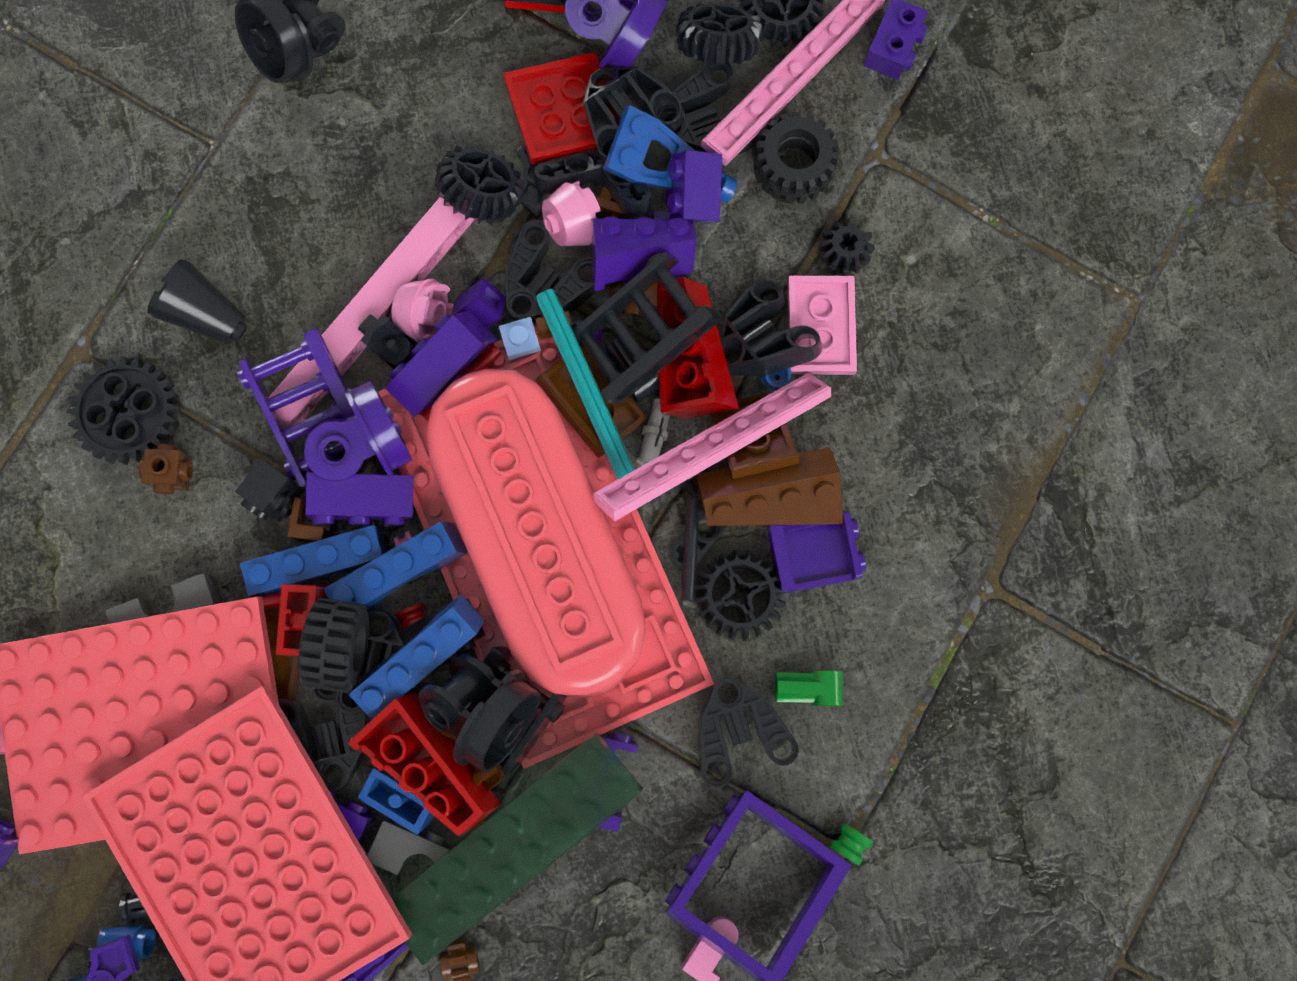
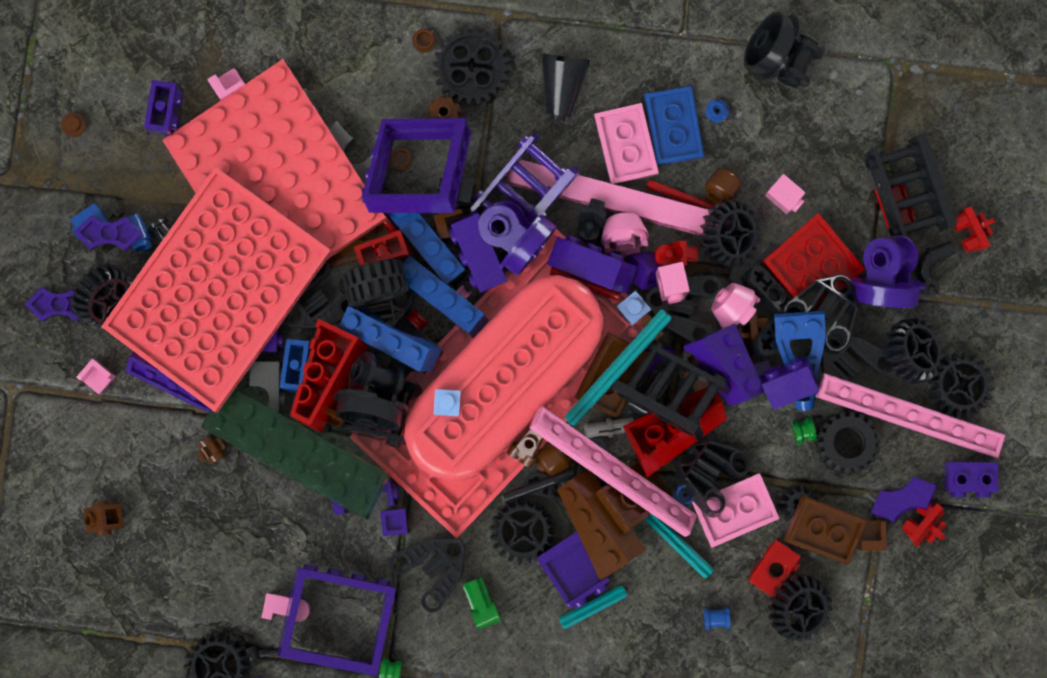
camera: 70 degrees right, 5 degrees up
(62, 456) = (424, 40): none -> reddish brown plate
(166, 510) = (417, 129): none -> dark purple window
(197, 549) = (401, 158): none -> reddish brown plate
(312, 264) = (626, 144): none -> bright pink plate
(318, 201) = (673, 125): none -> blue tile
(324, 150) = (712, 115): none -> blue plate
(392, 243) = (678, 195): none -> red bar
(417, 171) = (722, 185): none -> reddish brown head
(464, 104) = (786, 194): none -> bright pink brick
(477, 257) = (676, 253): none -> red hips
(508, 269) = (672, 282): none -> bright pink brick
(534, 614) = (447, 402): none -> light blue plate
(637, 547) = (525, 449): none -> reddish brown plate
(660, 756) = (394, 522): none -> dark purple panel
(664, 517) = (552, 460): none -> reddish brown head
(759, 203) = (803, 430): none -> green wheel
(832, 412) = (680, 546): none -> teal axle
(871, 548) = (593, 606): none -> teal axle
(890, 227) = (825, 529): none -> reddish brown tile
(891, 110) = (913, 496): none -> dark purple tile
(912, 327) = (775, 553): none -> red brick
(919, 178) = (873, 537): none -> reddish brown panel
(935, 125) = (918, 532): none -> red hips
(946, 402) = (716, 618): none -> blue bush
(975, 295) = (804, 615): none -> black gear

